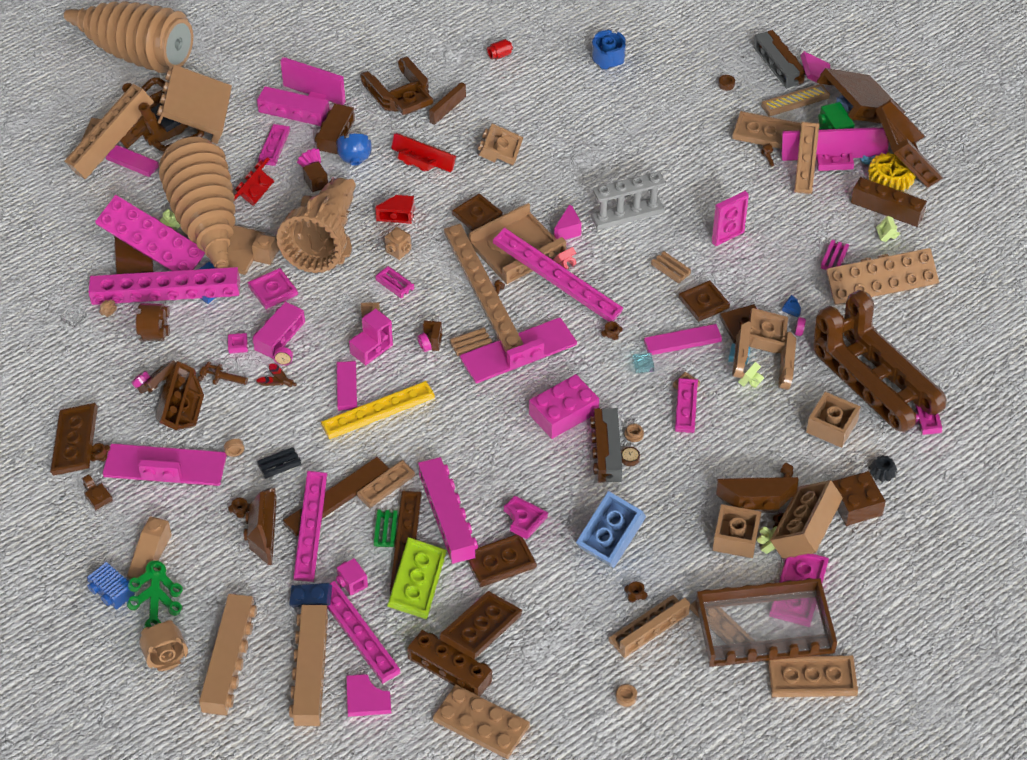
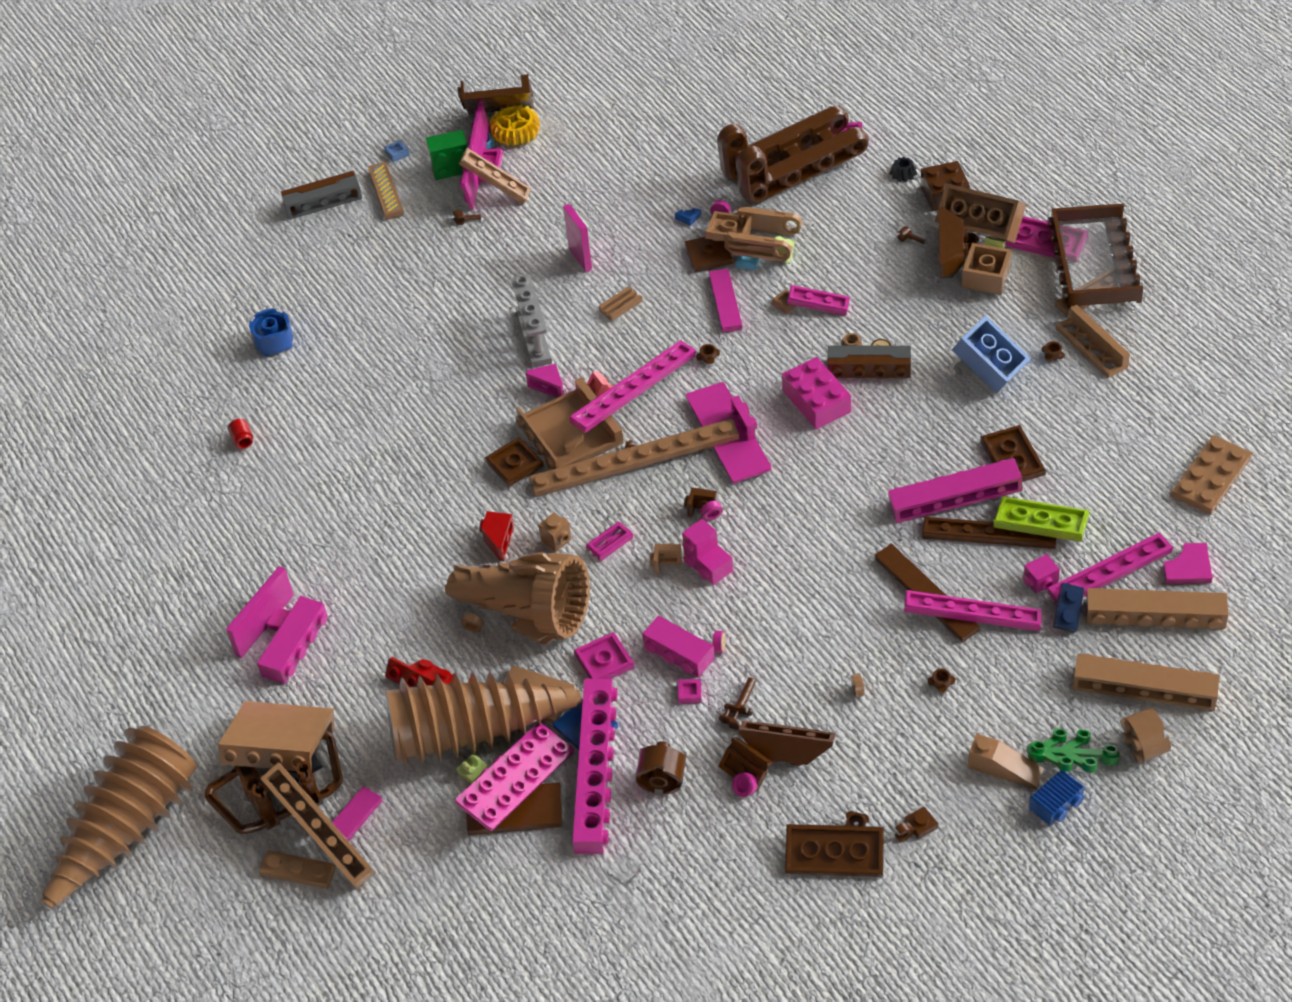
camera: 80 degrees left, 0 degrees up
(107, 308) = (620, 827): medium nougat plate -> none
(165, 464) = (876, 756): dark pink bracket -> none
(261, 525) = (972, 651): reddish brown wedge -> none
(265, 248) = (539, 659): medium nougat slope -> none
(274, 144) = (353, 663): dark pink tile -> none
(278, 379) = (749, 650): reddish brown piece -> none
(278, 460) = (870, 632): black tile -> none
(309, 157) = (395, 619): dark pink piece -> none
(315, 176) = (427, 614): reddish brown brick -> none
(337, 124) = (345, 595): reddish brown brick -> none
(346, 385) = (765, 584): dark pink tile -> none
(354, 148) = (391, 572): blue cylinder -> none
(377, 410) = (803, 557): yellow tile -> none
(385, 484) = (911, 548): medium nougat tile -> none
(387, 514) = (972, 546): green tile -> none
(404, 98) = (309, 519): reddish brown plate -> none
(421, 154) = (408, 510): red bracket -> none
(447, 103) = (324, 484): reddish brown tile -> none
(449, 663) = (1148, 493): reddish brown brick -> none
(470, 339) = (706, 461): medium nougat tile -> none
(480, 625) = (1106, 462): reddish brown plate -> none
(499, 144) = (408, 436): medium nougat plate -> none
(524, 516) = (959, 431): dark pink tile -> none
(626, 695) = (1173, 365): medium nougat tile -> none
(643, 363) = (755, 332): clear light blue tile -> none
(704, 300) = (675, 279): reddish brown plate -> none
(726, 82) = (343, 243): reddish brown tile -> none
(762, 129) = (432, 212): medium nougat plate -> none
(813, 66) = (349, 165): dark pink tile -> none
(813, 676) = (1147, 236): medium nougat tile -> none
(833, 419) = (849, 191): medium nougat brick -> none
(839, 246) = (622, 179): dark pink tile -> none
(860, 91) = (410, 122): reddish brown panel -> none
(883, 275) = (658, 145): medium nougat bracket -> none
(887, 229) = (595, 136): yellowish green tile -> none
(888, 202) = (558, 130): reddish brown brick -> none

